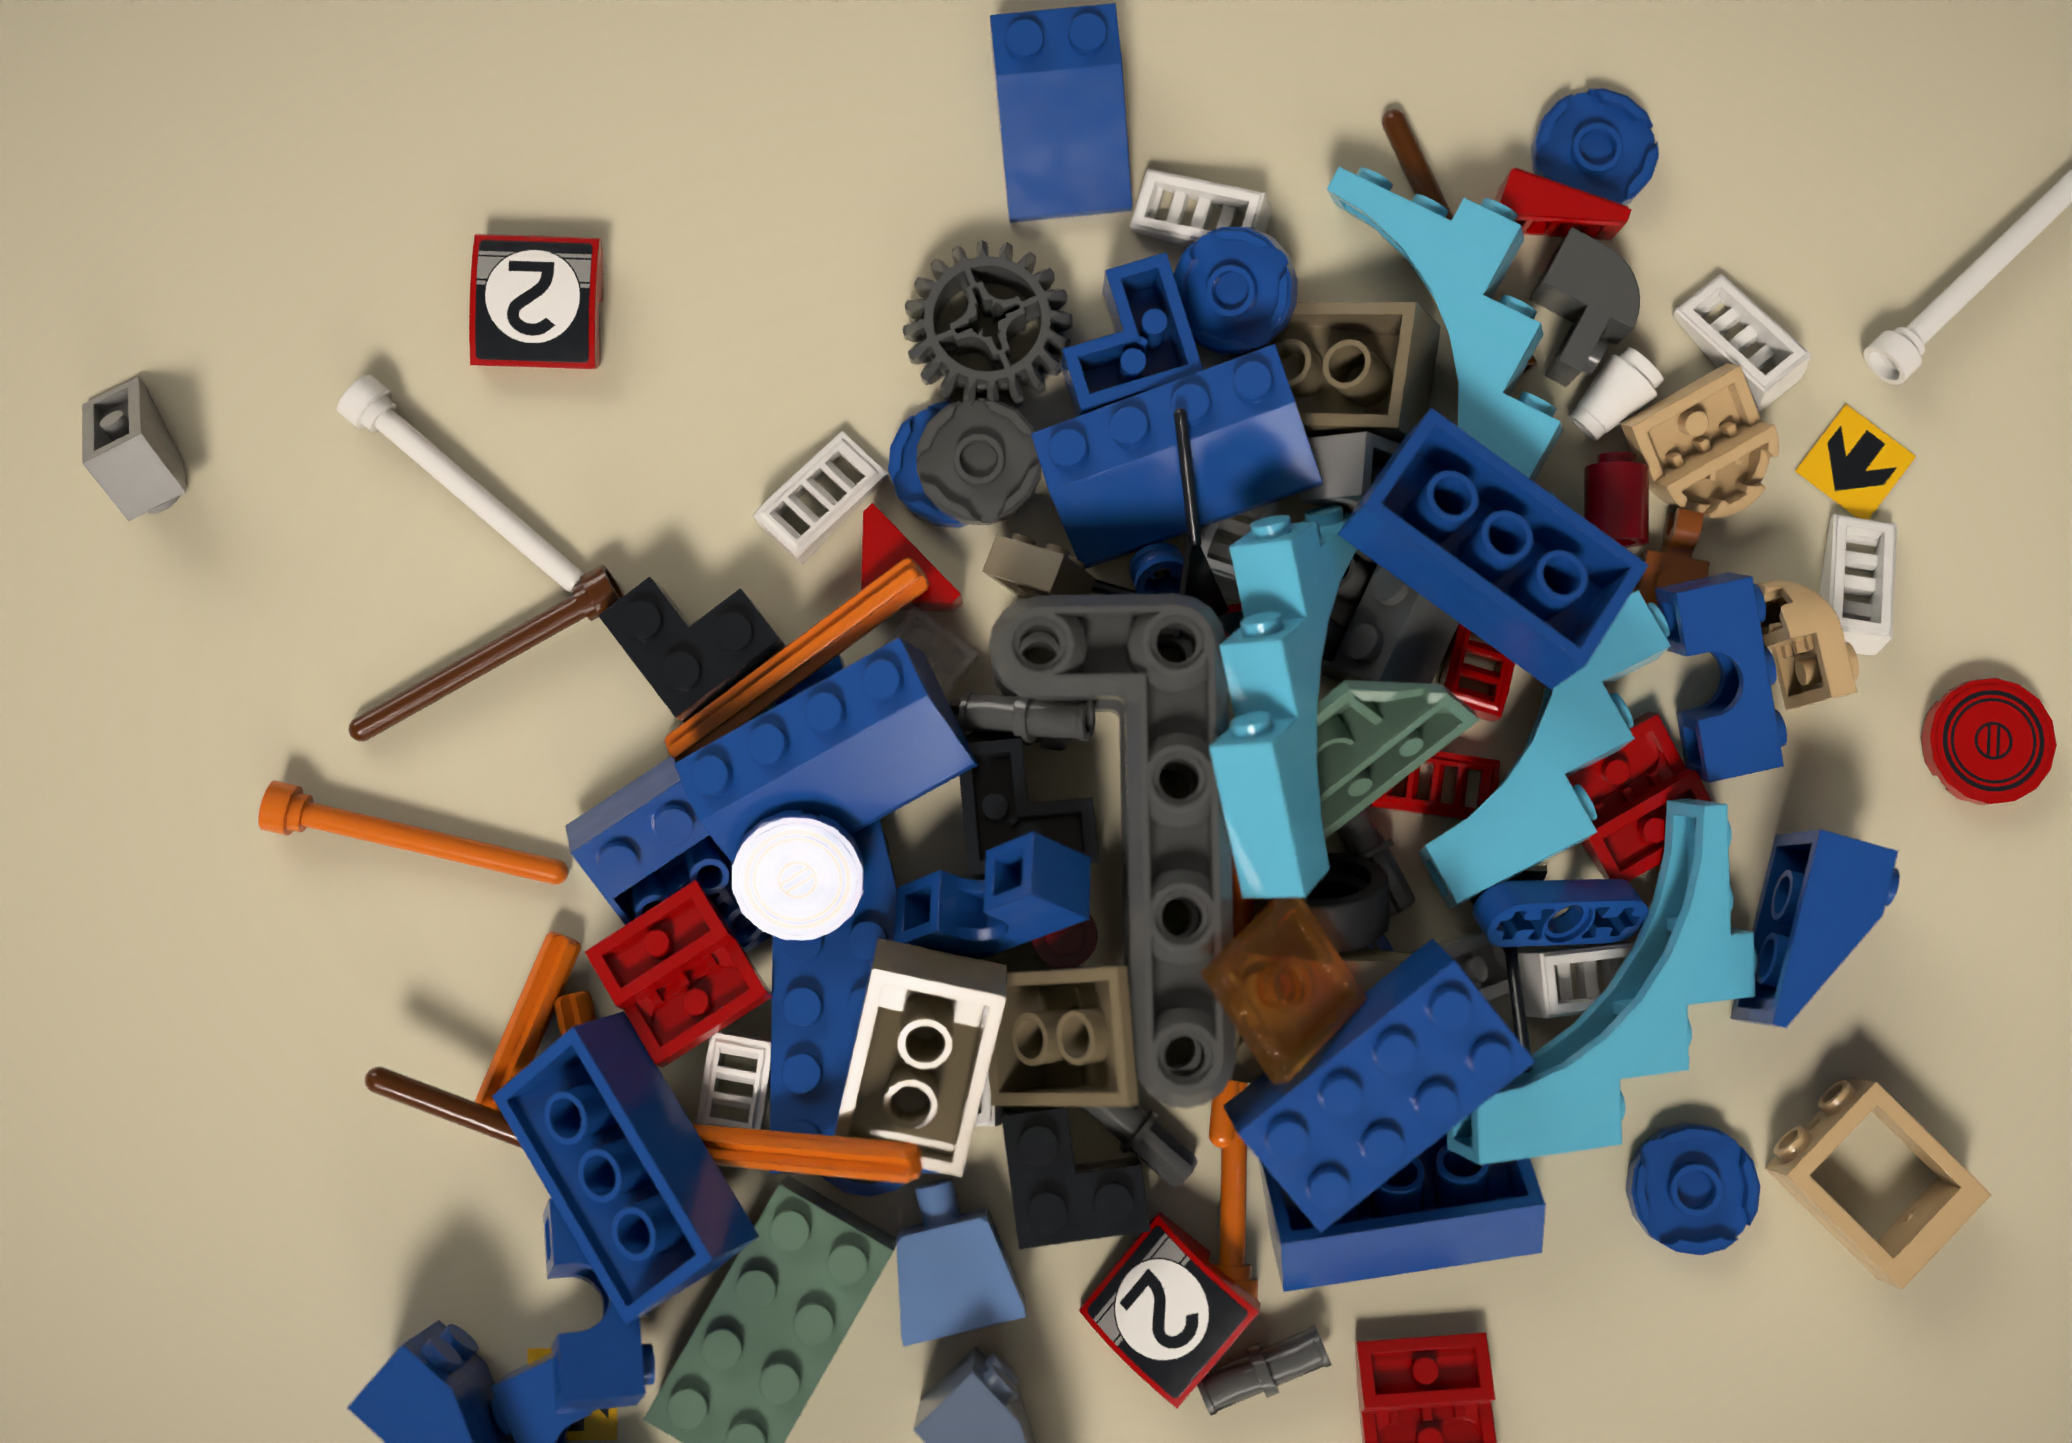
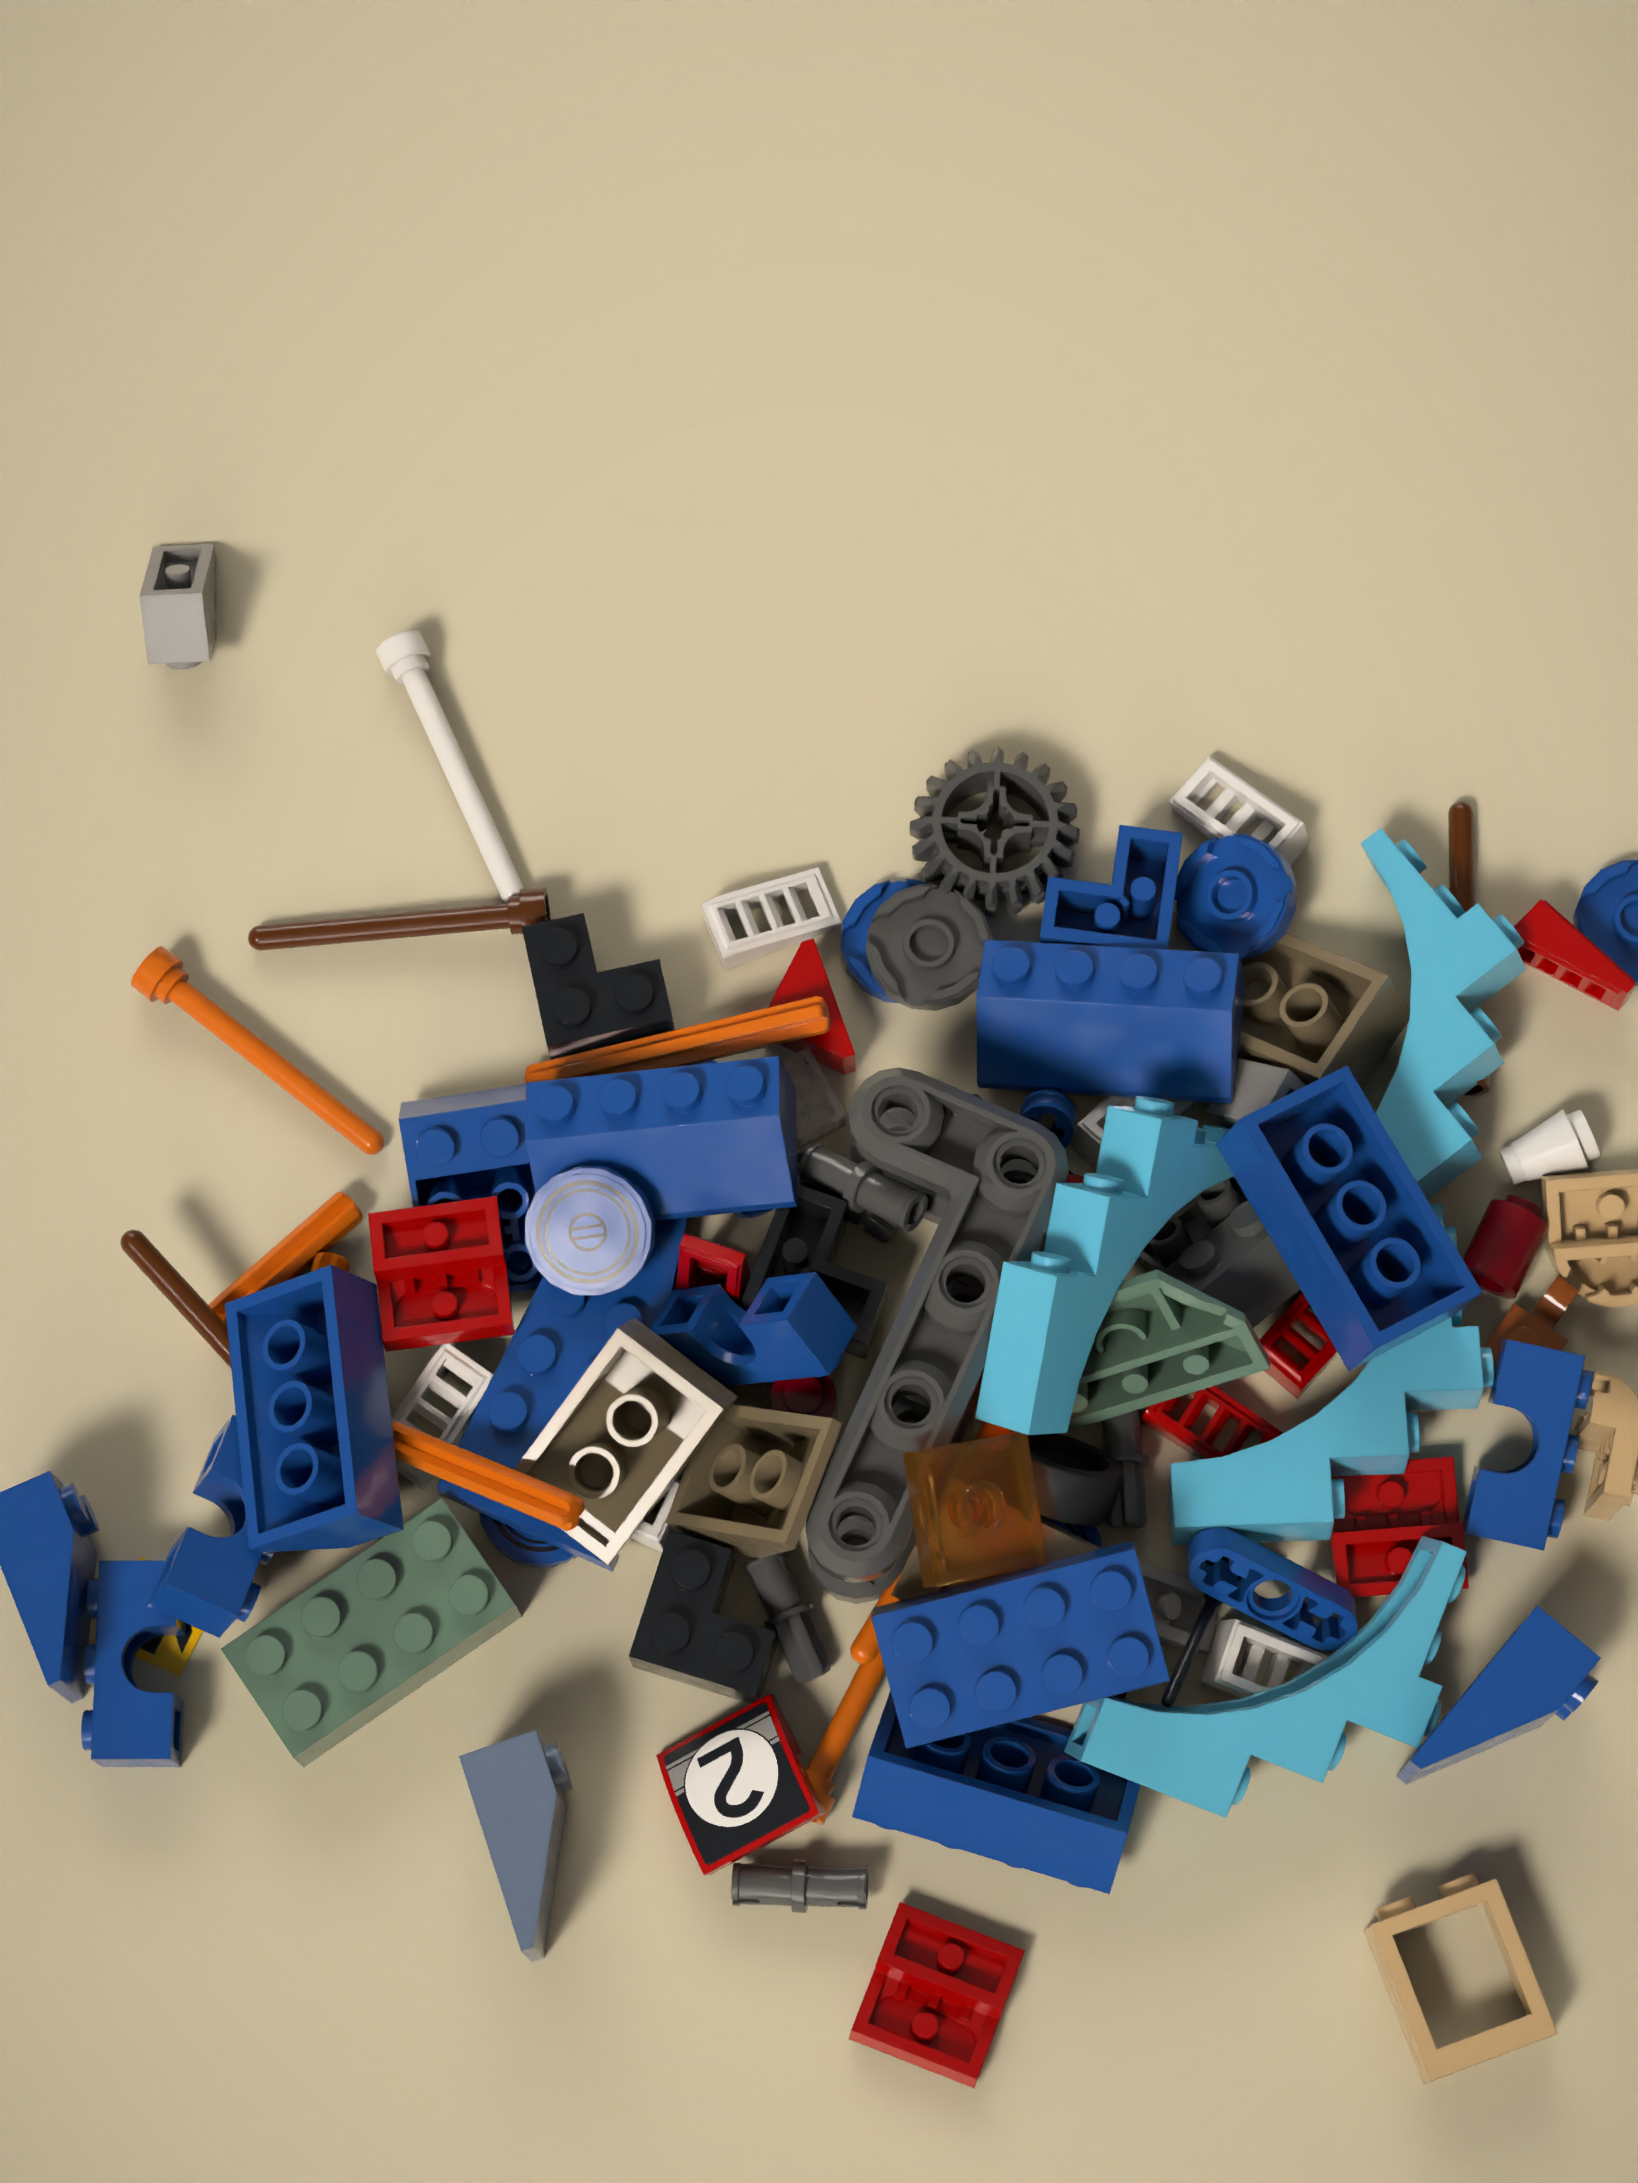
camera: 30 degrees right, 10 degrees down
(535, 301) = (597, 632): slope -> none
(925, 856) = (712, 1264): none -> red slope
(953, 1270) = (558, 1657): medium blue torso -> none
(1036, 570) = (924, 1050): dark tan piece -> none
(1061, 112) = (1151, 672): blue slope -> none
(1197, 575) = (1078, 1128): black piece -> none
(1595, 293) = (1573, 1052): dark grey brick -> none
(1692, 1188) = (1284, 1913): blue tile -> none

